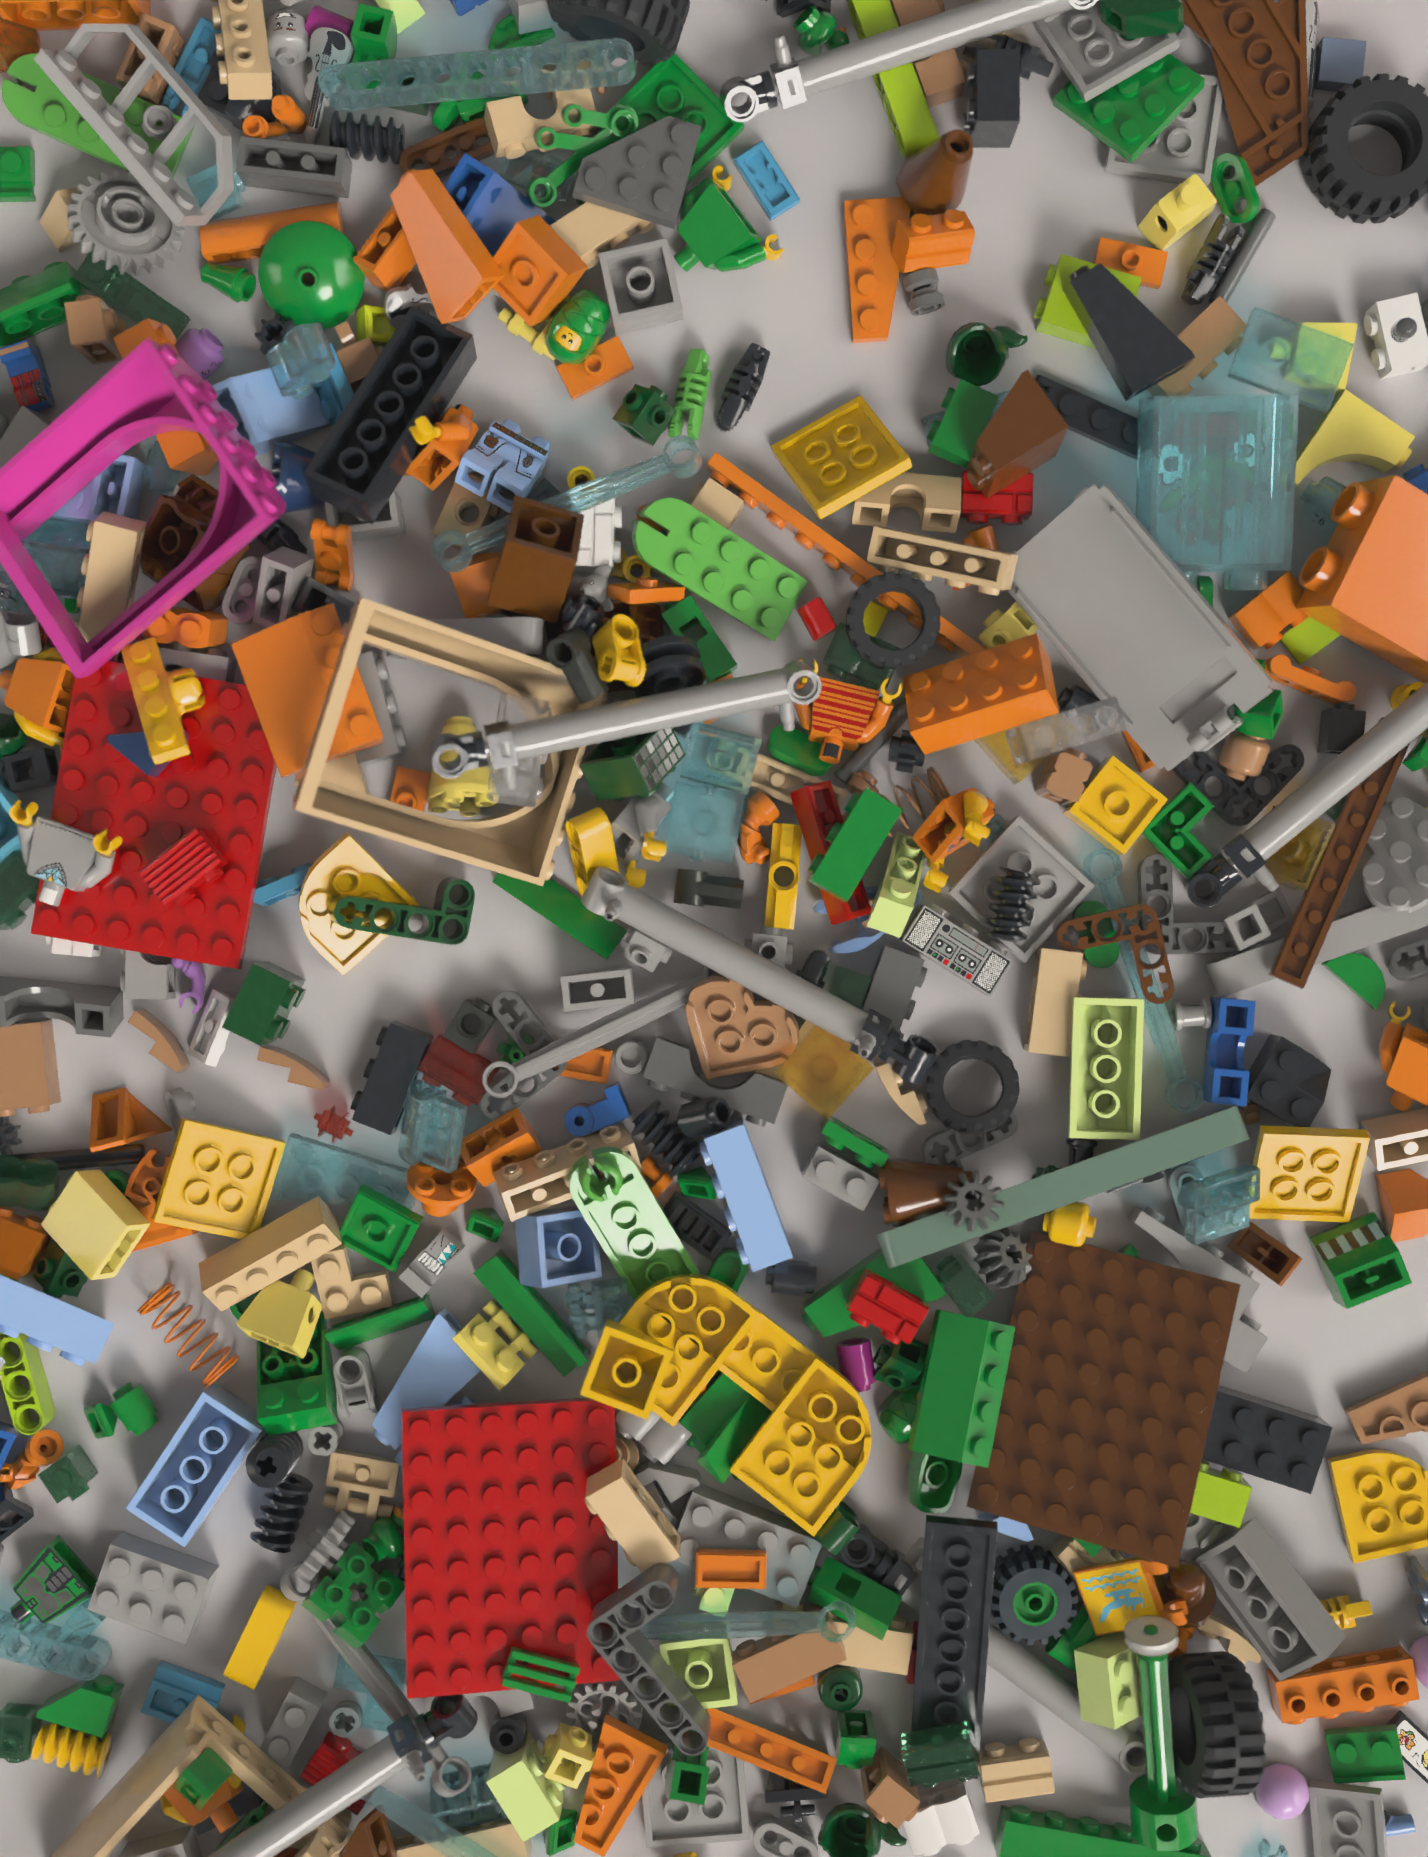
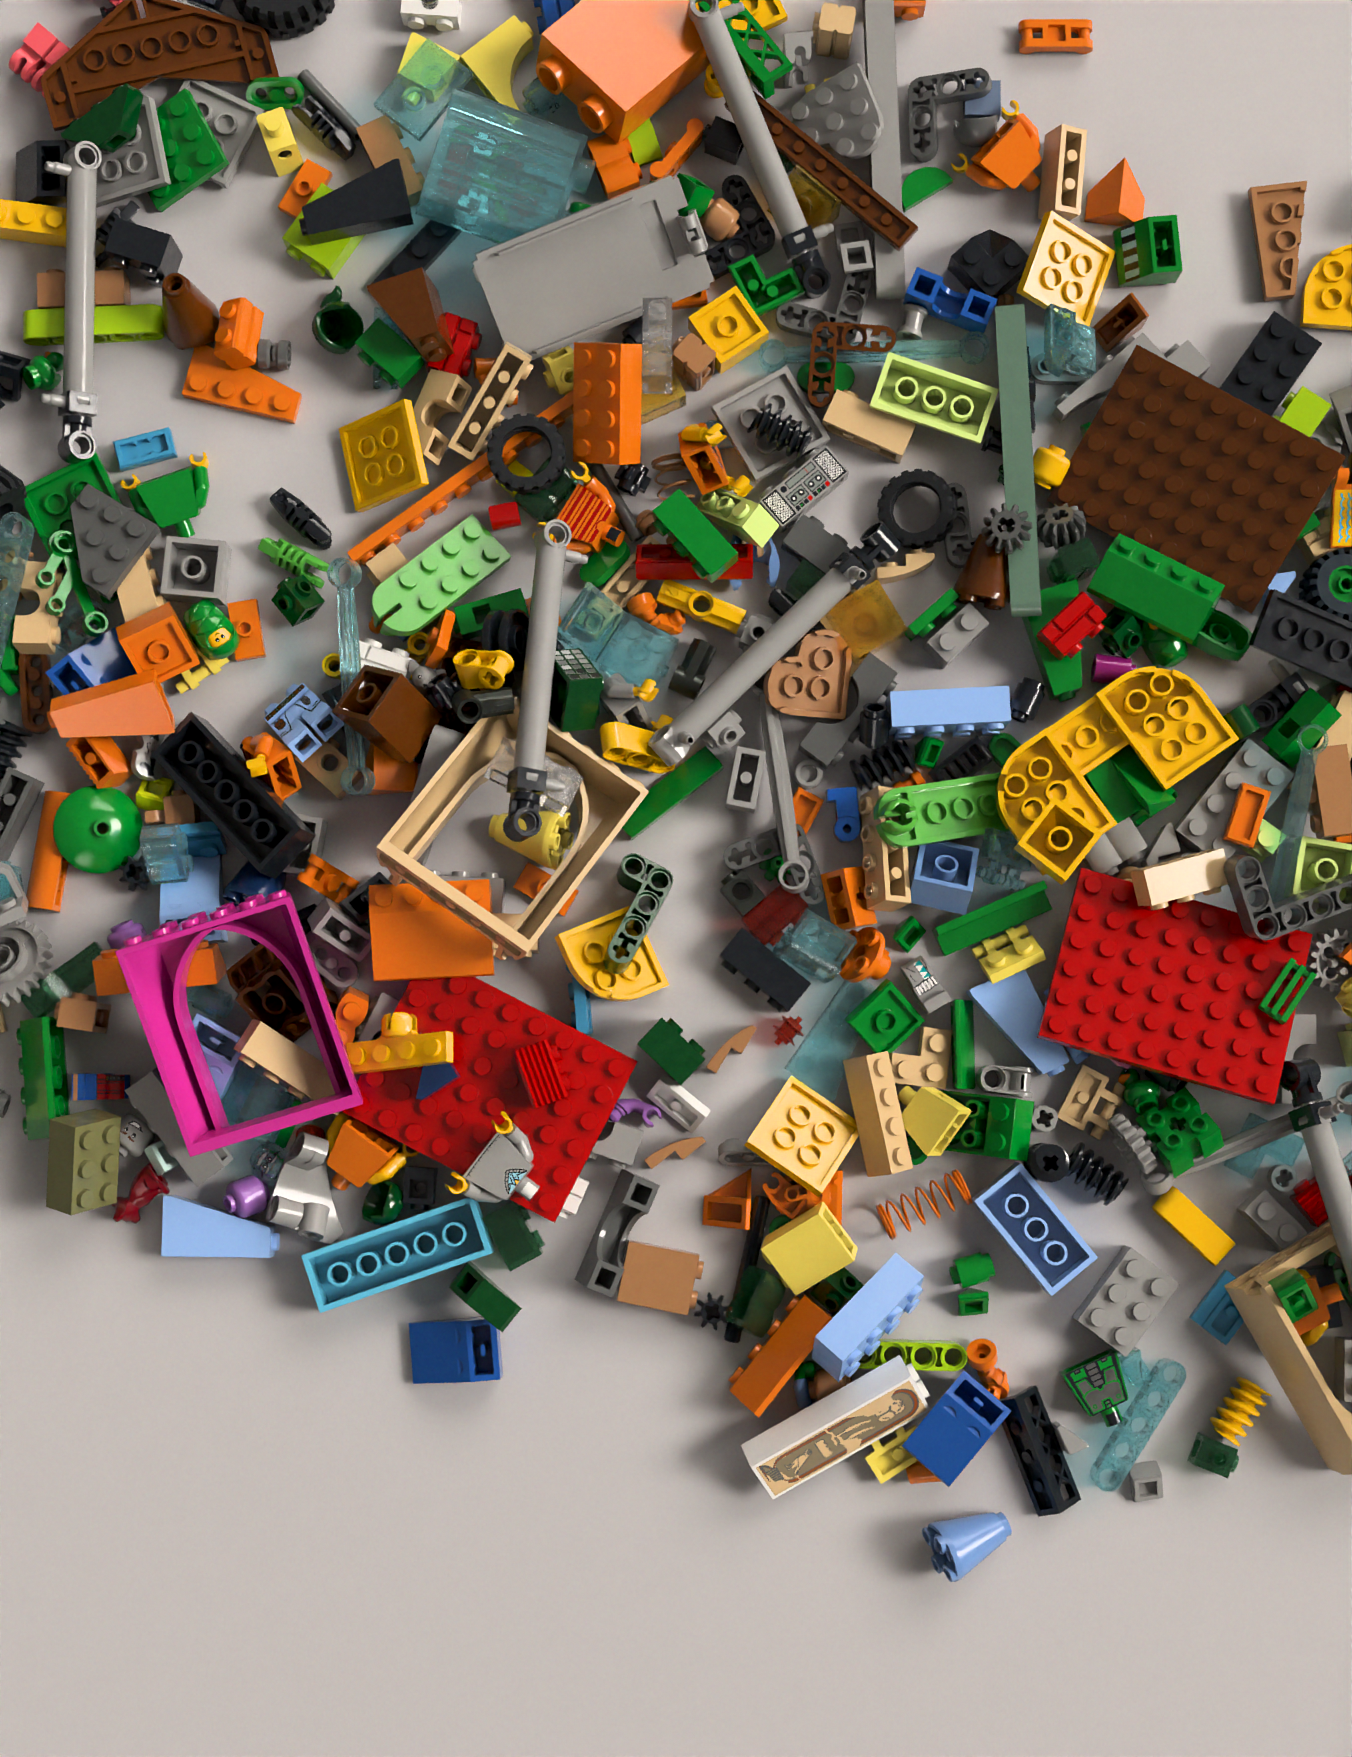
camera: 70 degrees left, 5 degrees down
(69, 1475) = (1011, 1341): clear green brick -> none
(85, 1705) = (1206, 1391): green slope -> none
(229, 280) = (79, 897): green cone -> none
(508, 1732) = (1322, 1047): black brick -> none

